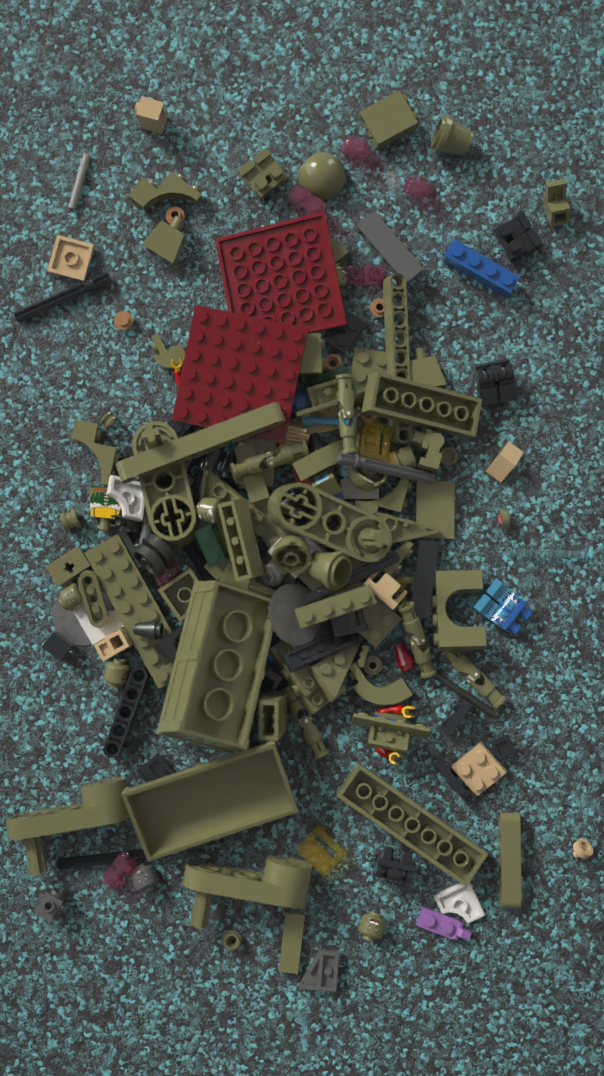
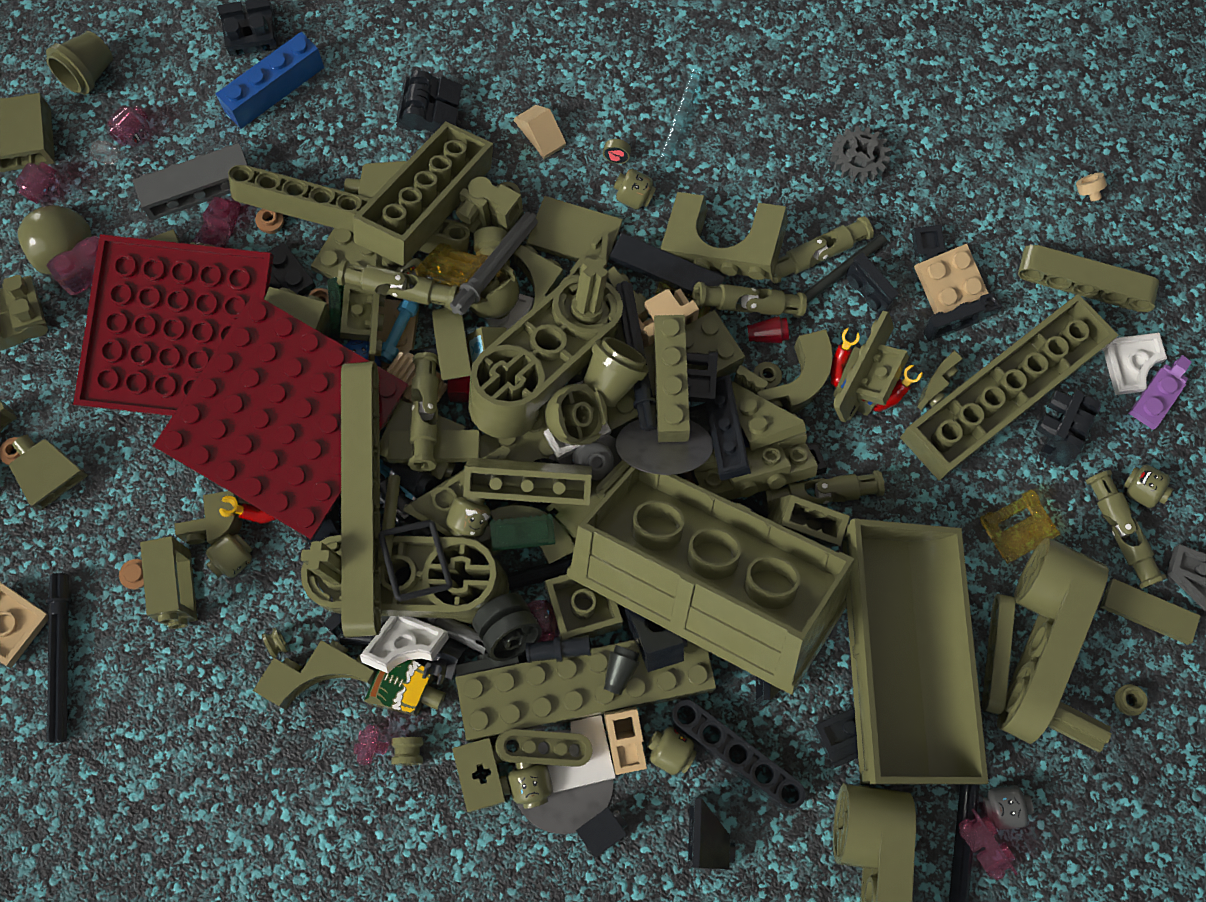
camera: 75 degrees left, 15 degrees down
(67, 496) = (369, 745): none -> clear pink plant
(72, 709) = (708, 839): none -> black slope
(121, 345) = (168, 582): none -> olive window
(150, 589) = (558, 649): none -> black pin
(151, 372) = (229, 555): none -> olive head
(180, 502) = (390, 569): none -> black piece
(195, 463) = (390, 511): none -> olive bar
(235, 853) = (998, 654): none -> olive beam
(350, 908) = (1118, 514): none -> olive piece
(397, 775) = (934, 389): none -> olive slope
(477, 540) = (634, 189): none -> olive head
(509, 607) = (735, 186): hips -> none
(560, 679) = (860, 154): none -> dark grey gear

